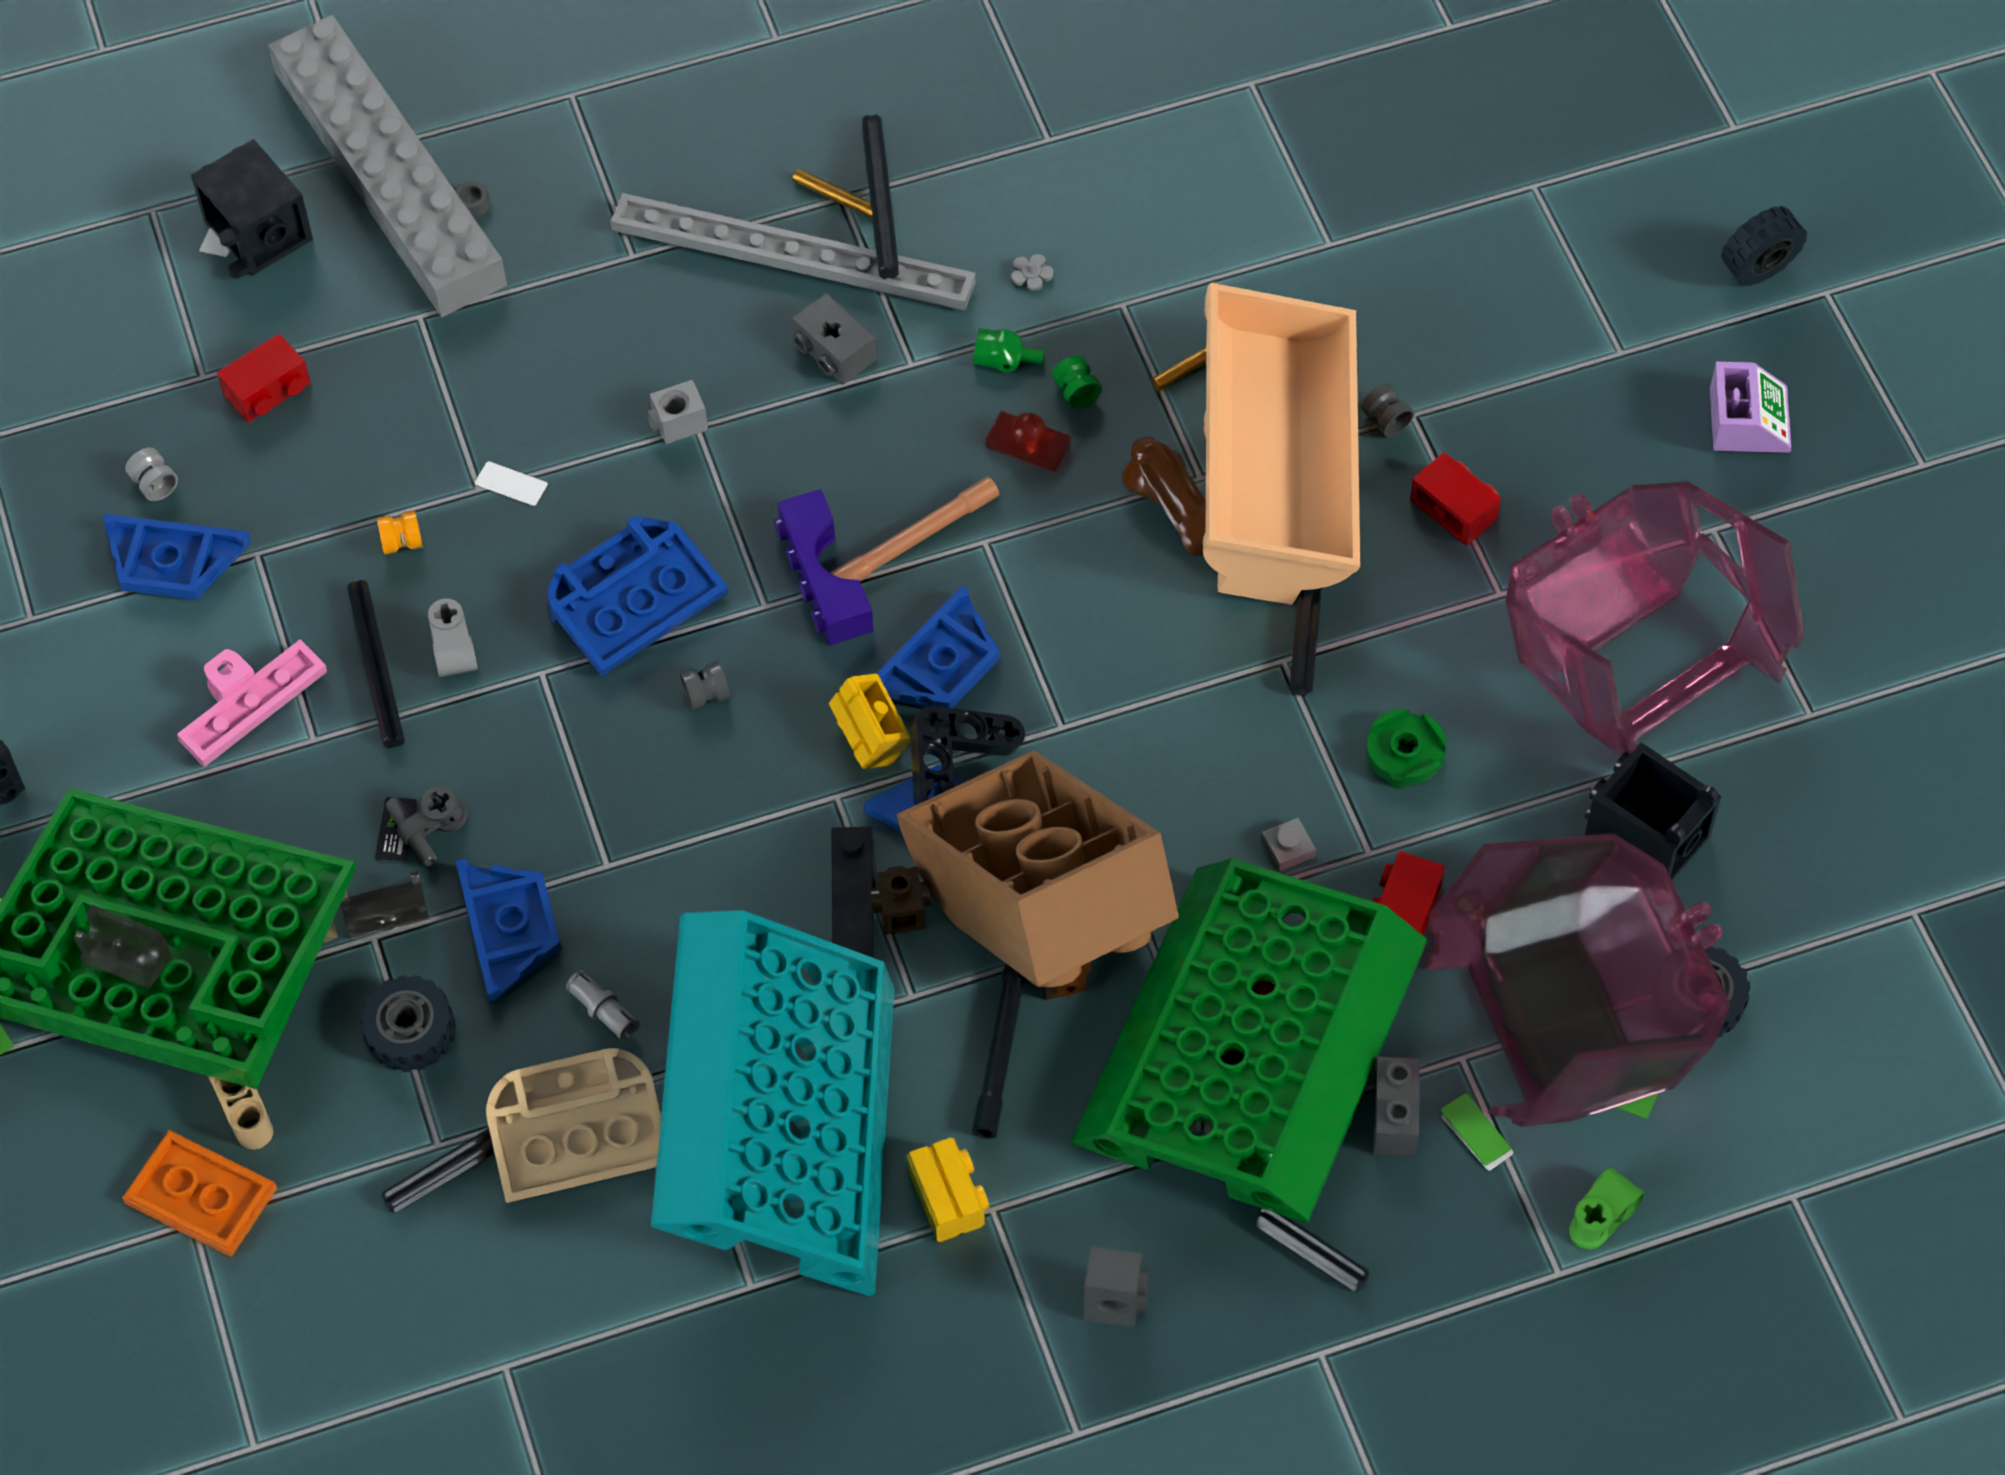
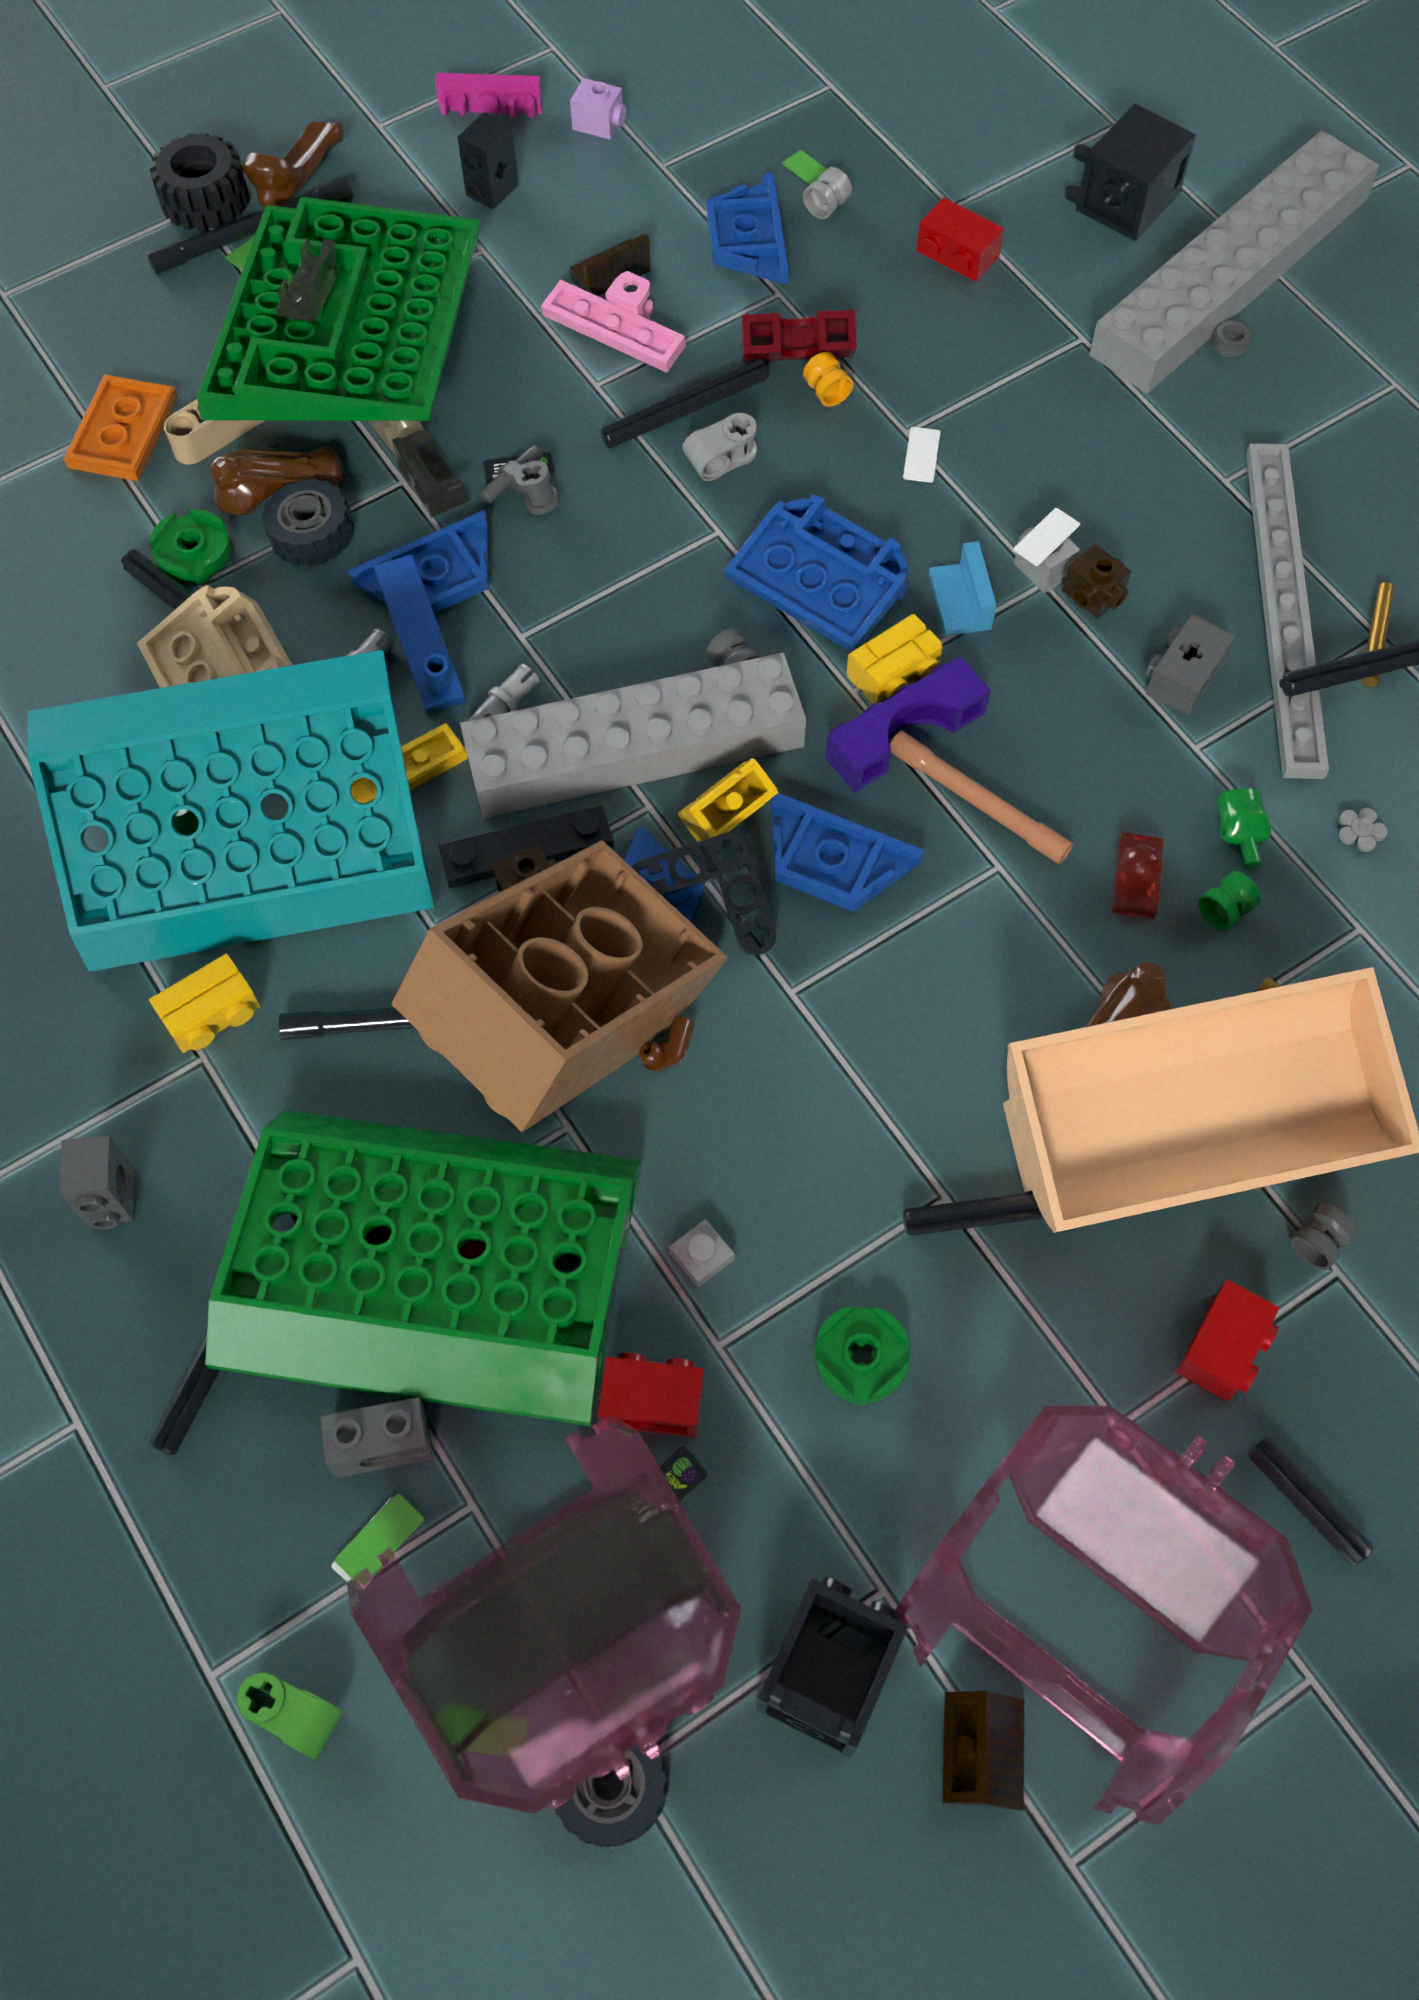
camera: 75 degrees right, 5 degrees up
(99, 486) = (804, 167): none -> bright green sticker
(165, 691) = (601, 270): none -> dark brown panel
(336, 556) = (798, 339): none -> dark red arch
(338, 1067) = (251, 476): none -> reddish brown hair
(395, 1117) = (191, 564): none -> green plate
(592, 940) = (419, 634): none -> blue piece
(669, 400) = (1046, 536): none -> white sticker
(685, 886) = (508, 695): none -> light grey pin
(692, 487) = (964, 593): none -> dark azure panel
(725, 379) = (1097, 581): none -> dark brown brick
(752, 558) = (894, 659): none -> yellow brick
(768, 777) = (633, 735): none -> light grey brick
(1589, 485) = (1311, 1501): none -> black axle
(1723, 745) = (983, 1750): none -> dark brown panel

